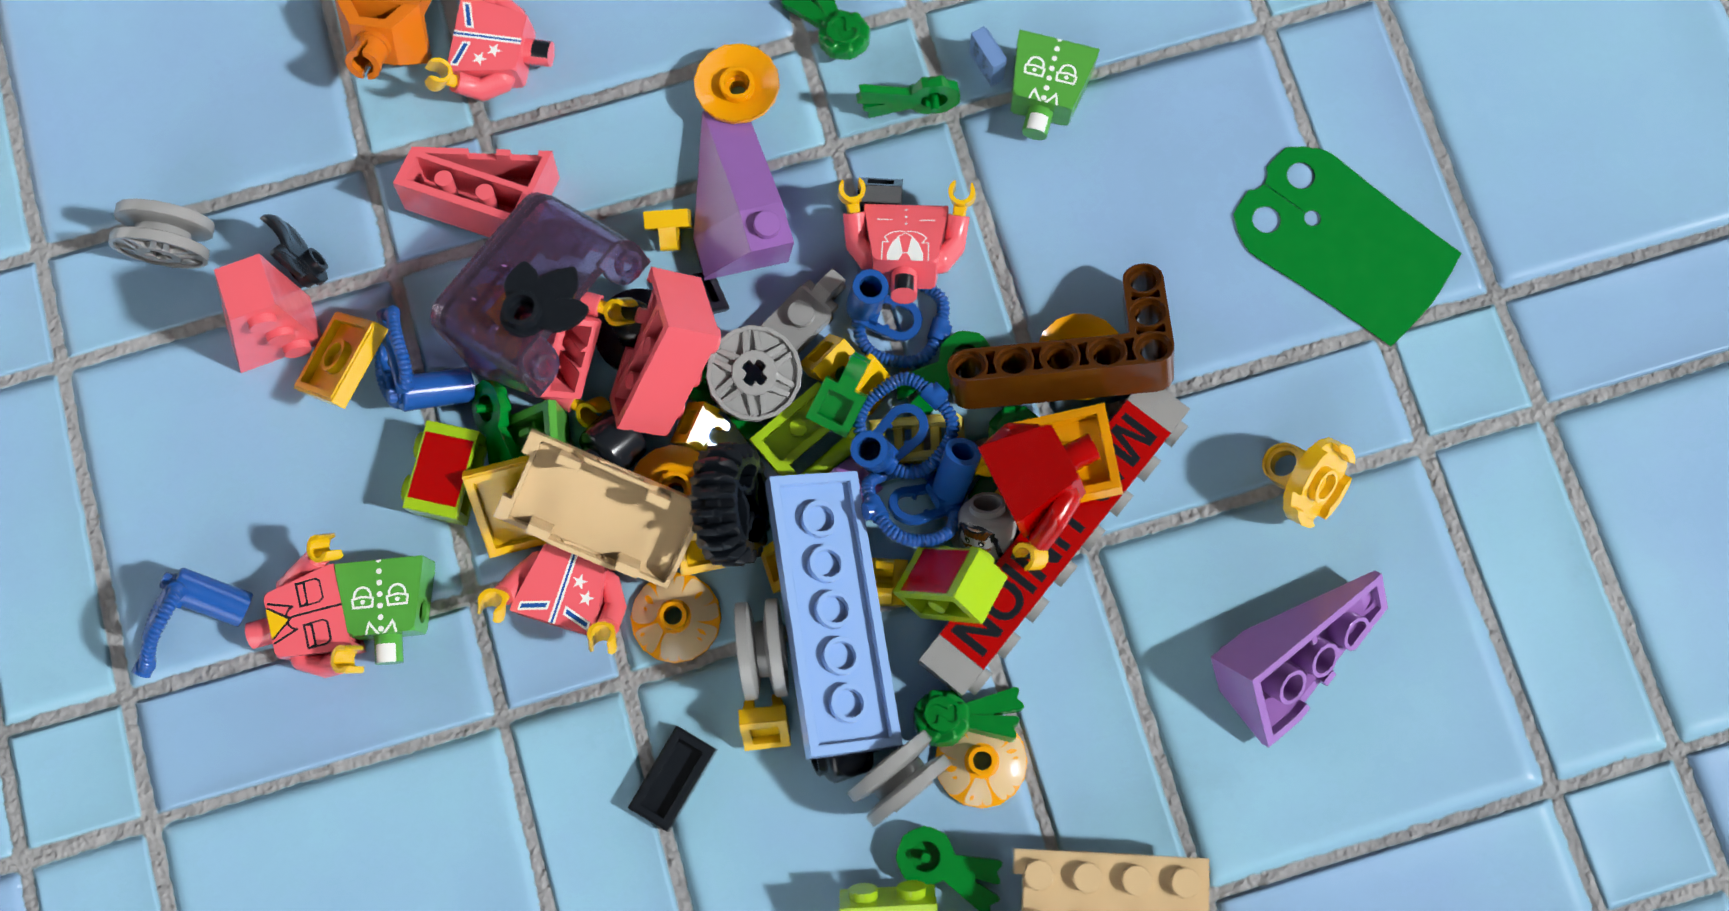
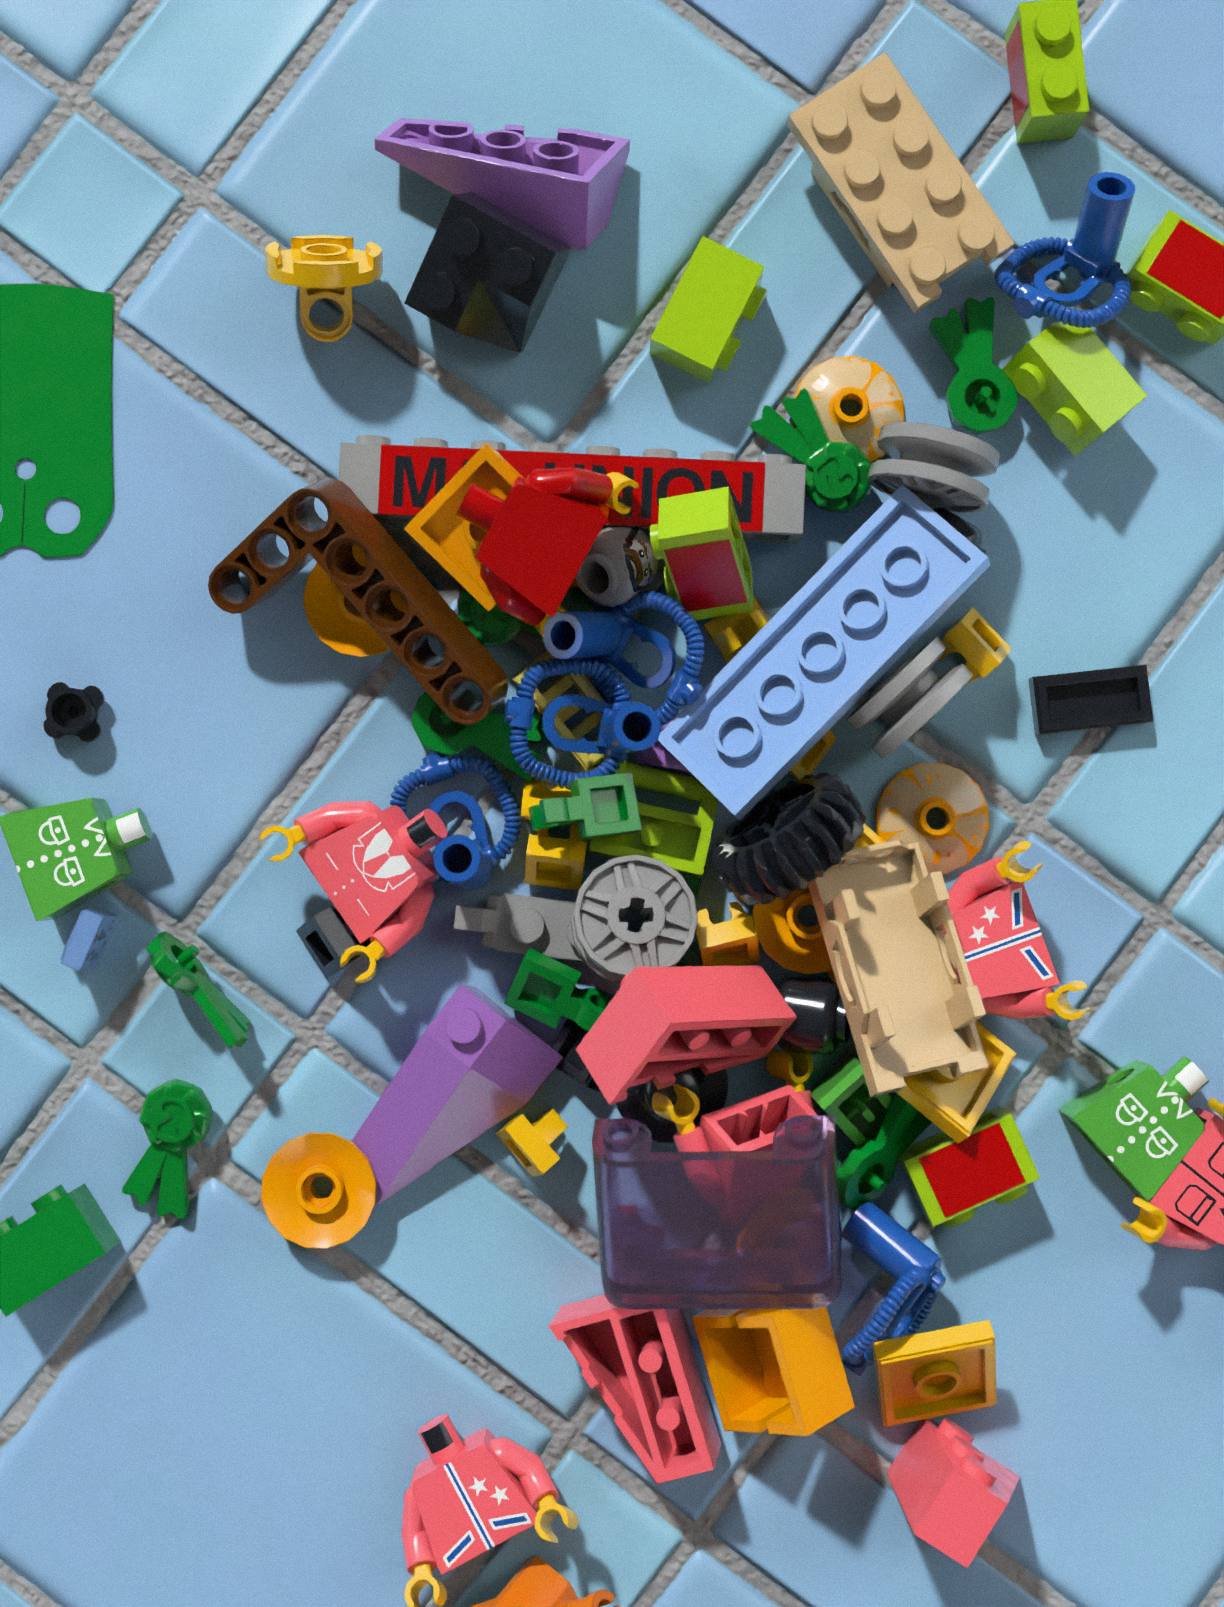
camera: 130 degrees left, 10 degrees up
(293, 253) = (863, 1514): black plate -> none
(416, 261) = (774, 1369): none -> light orange piece
(547, 298) = (729, 1183): black plate -> none
(747, 298) = (549, 991): none -> green plate
(1113, 712) = (707, 310): none -> lime brick
(1144, 133) = (61, 700): none -> black plate
(1239, 581) = (487, 273): none -> black slope

